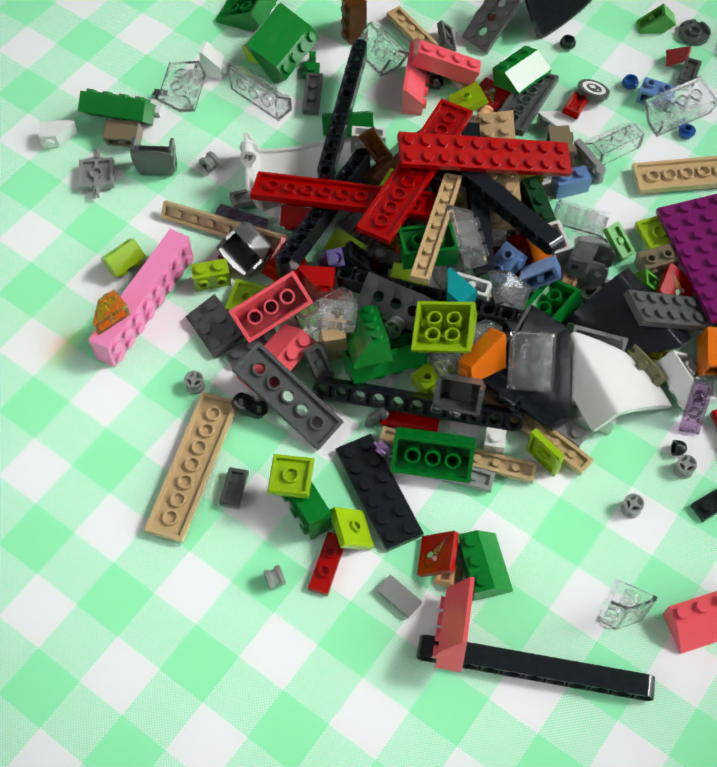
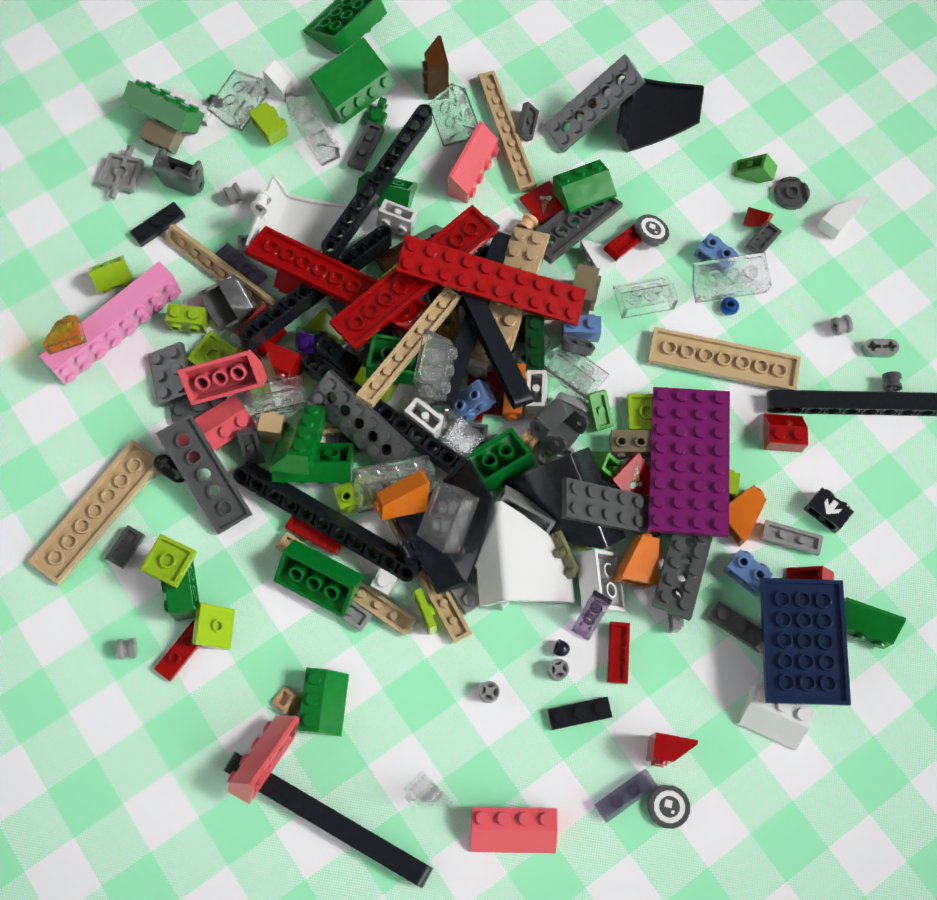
camera: 15 degrees right, 10 degrees up
(56, 133) = (98, 115): white slope -> none
(147, 207) = (157, 224): none -> black plate
(191, 378) = (127, 423): light grey wheel -> none
(217, 97) = (268, 123): none -> lime brick
(344, 310) = (269, 400): clear brick -> none
(373, 417) = (284, 518): dark grey arm -> none
(375, 145) = (396, 226): reddish brown plate -> none
(379, 493) = (257, 596): black plate -> none
(383, 448) = (274, 554): lavender plate -> none
(390, 325) = (334, 434): light grey wheel -> none
(399, 596) = (233, 705): light grey tile -> none
(436, 81) = (496, 170): black plate -> none
(438, 554) = (282, 678): red tile -> none
(444, 327) = (373, 457): lime slope -> none
(445, 62) = (507, 153): coral slope -> none
(459, 289) = (404, 422): teal slope -> none
(459, 394) = (361, 529): dark grey piece -> none
(469, 97) = (517, 202): lime plate -> none
(541, 272) = (501, 423): medium blue brick -> none
(567, 42) = (651, 165): black plate -> none
(576, 196) = (576, 344): none -> dark grey plate
(592, 163) = (611, 310): light grey plate -> none
(630, 82) = (696, 231): blue plate -> none

